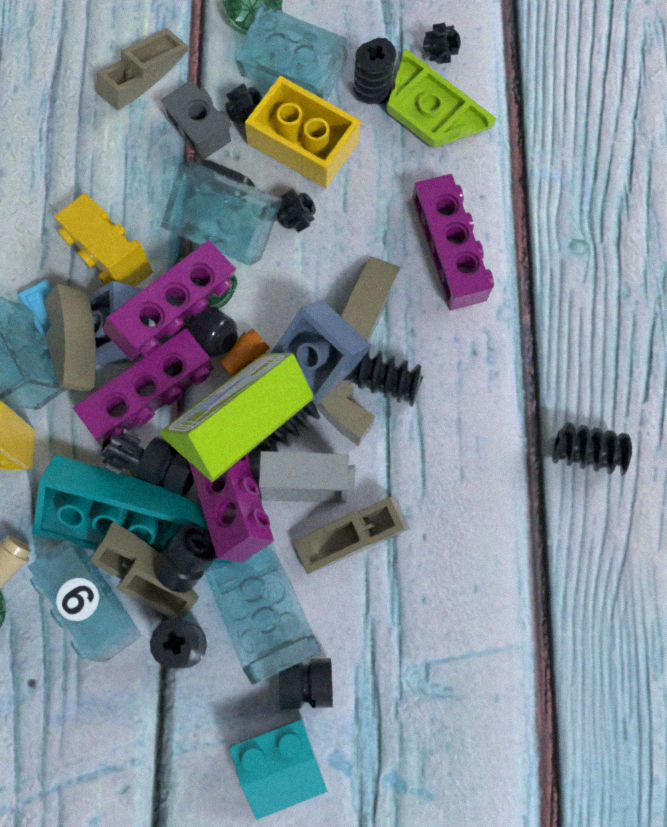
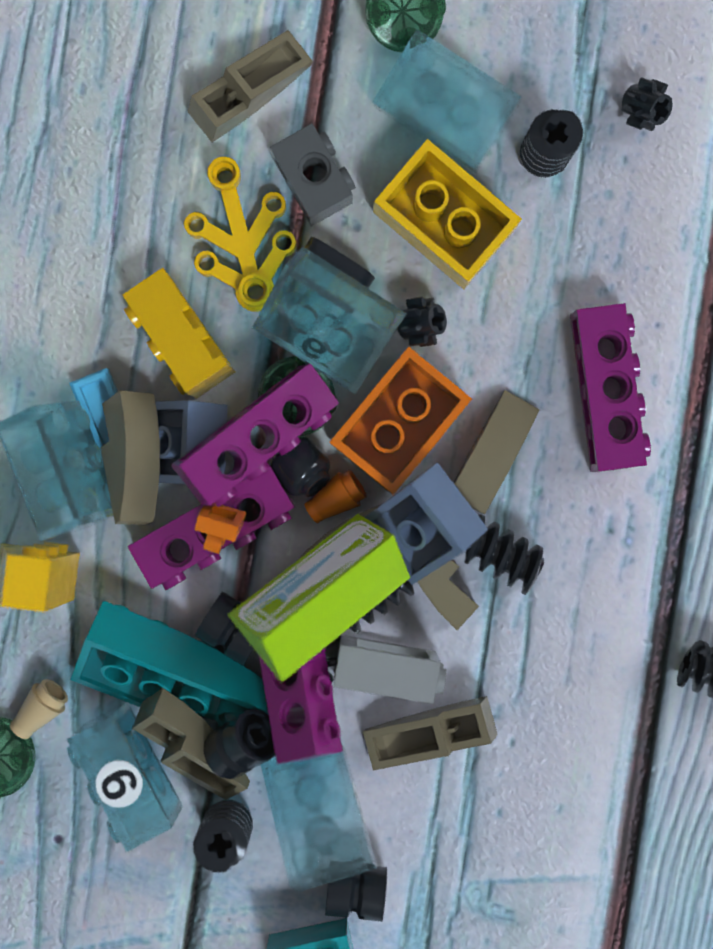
camera: 10 degrees right, 15 degrees up
(121, 451) = (179, 608): black gear -> none
(146, 176) = (242, 242): none -> yellow plant
(147, 375) = (220, 525): none -> orange tile
(242, 103) = (375, 162): black gear -> none
(288, 276) = (400, 420): none -> orange brick
(433, 105) = (619, 191): lime wing -> none

